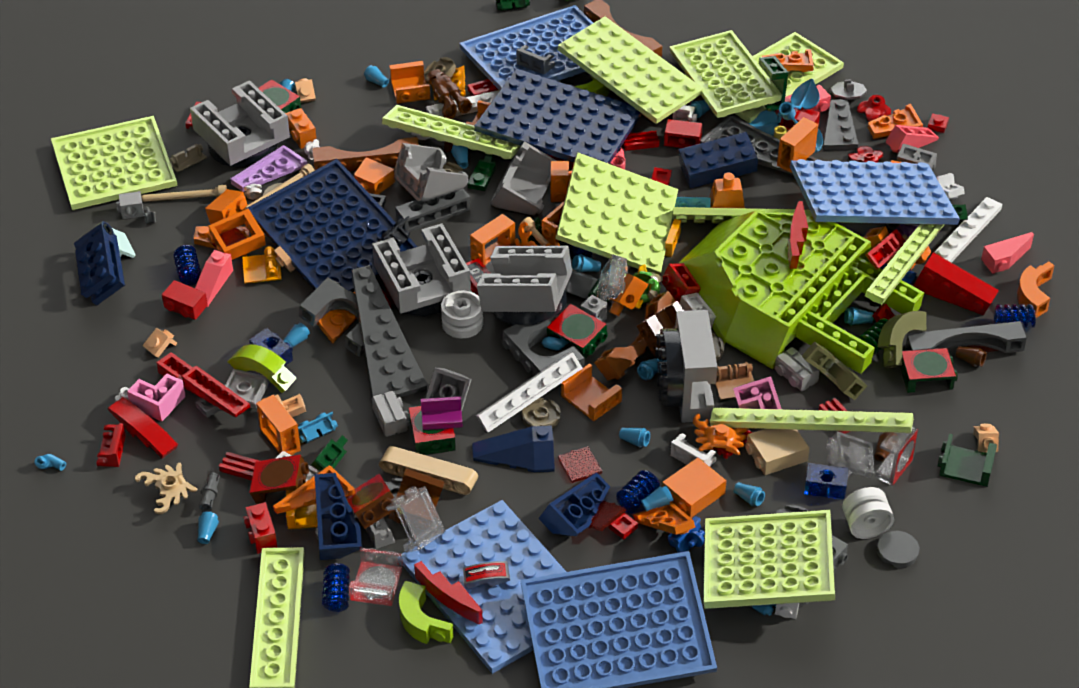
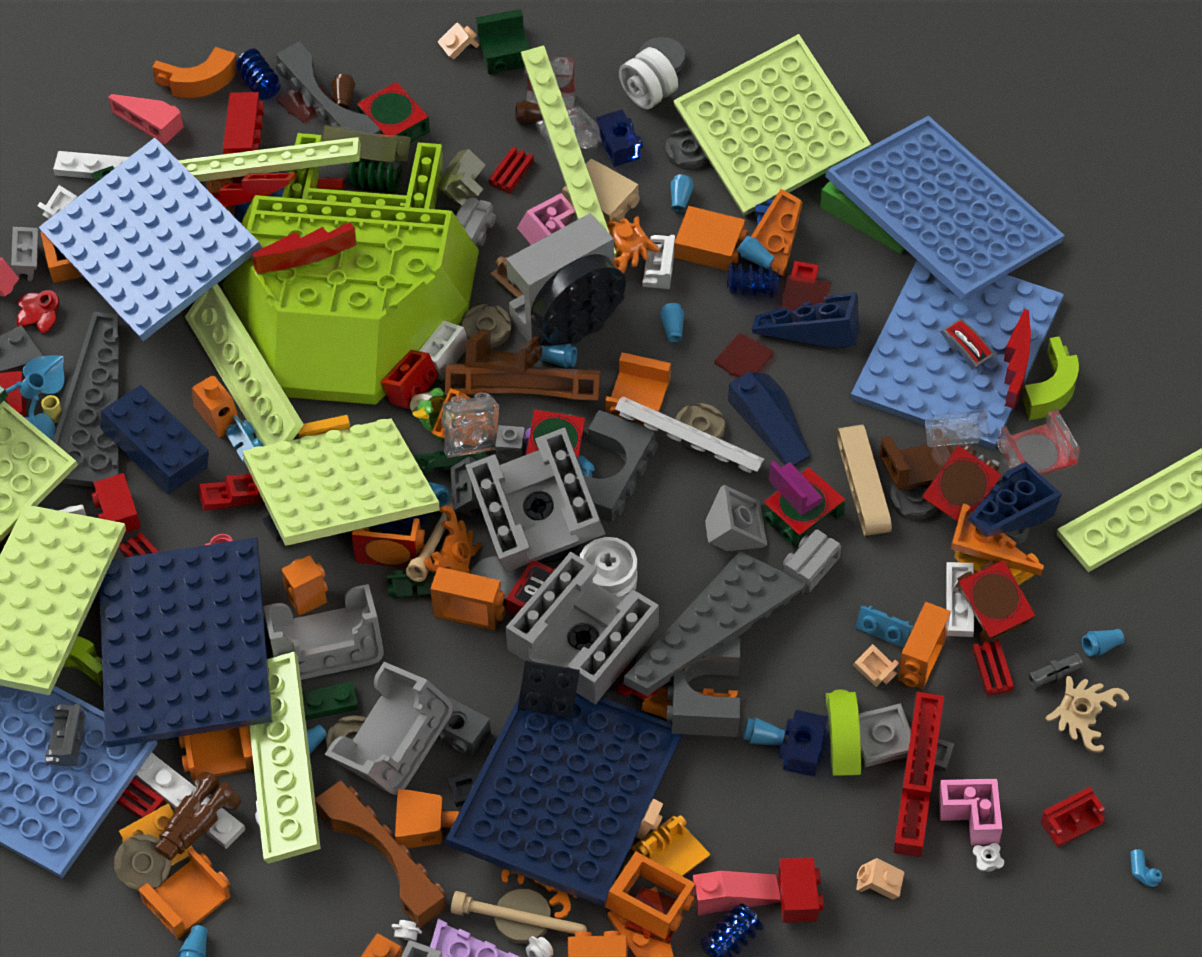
camera: 120 degrees left, 10 degrees up
(143, 427) = (1023, 800): red slope -> none
(261, 527) = (1065, 583): red brick -> none
(331, 454) = (917, 577): dark green hinge -> none
(336, 587) = (1083, 468): clear blue piece -> none
(797, 143) = (88, 355): orange brick -> none

